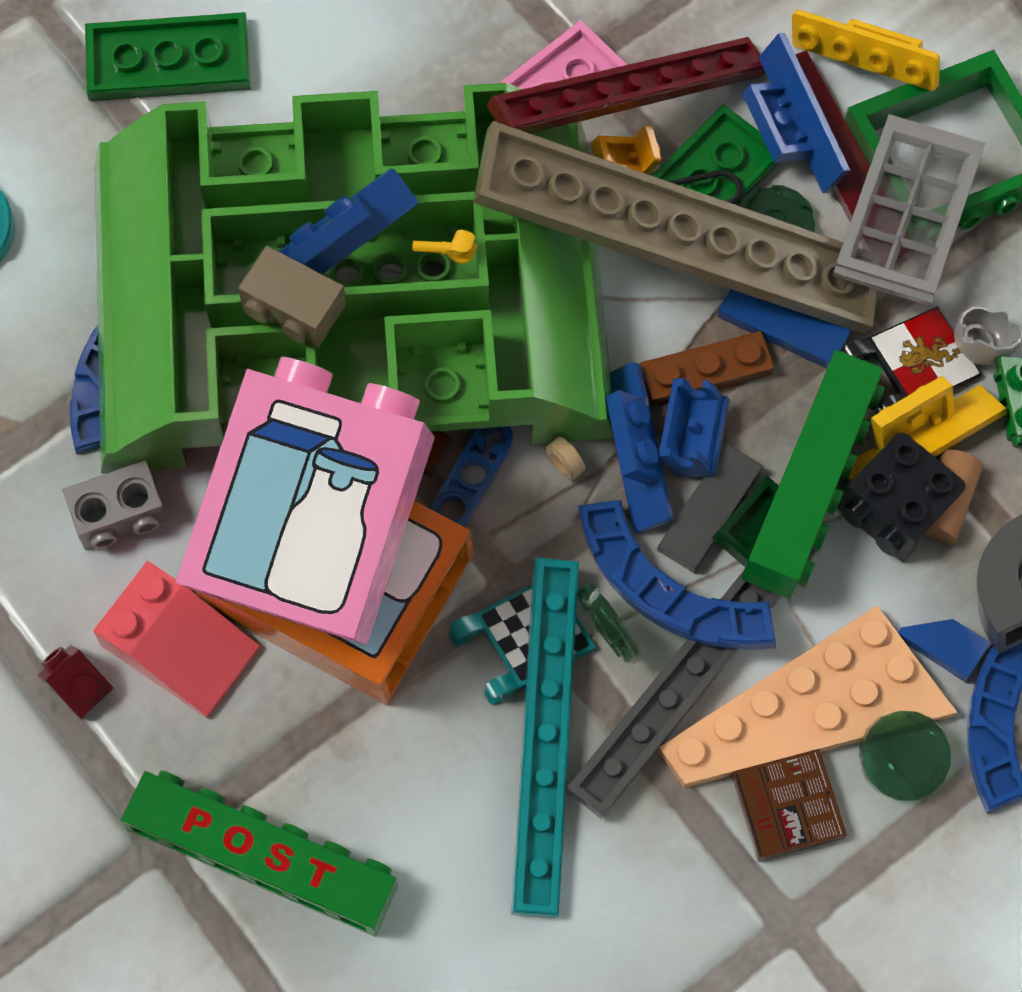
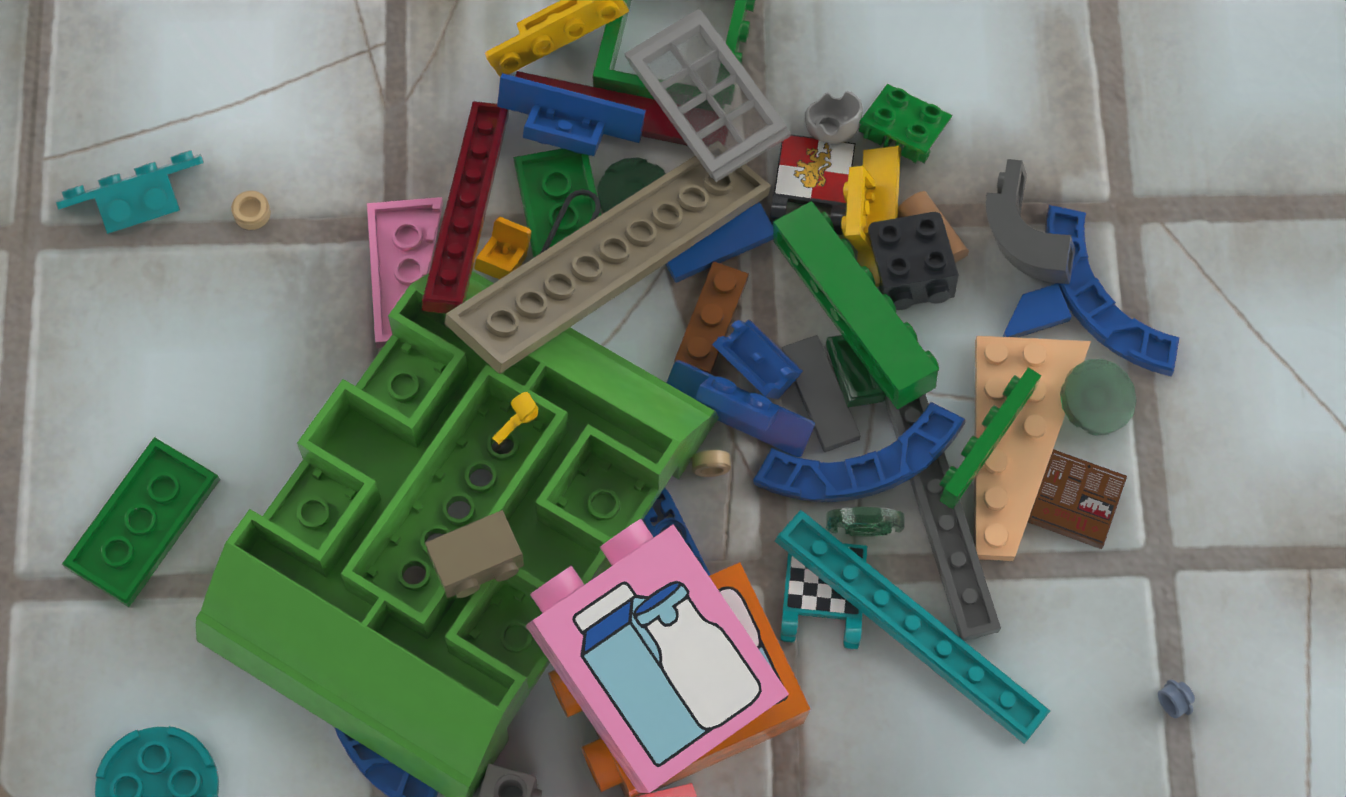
camera: 55 degrees left, 0 degrees up
(351, 223) = (440, 480): blue bracket -> none
(793, 676) = (979, 449): none -> green plate

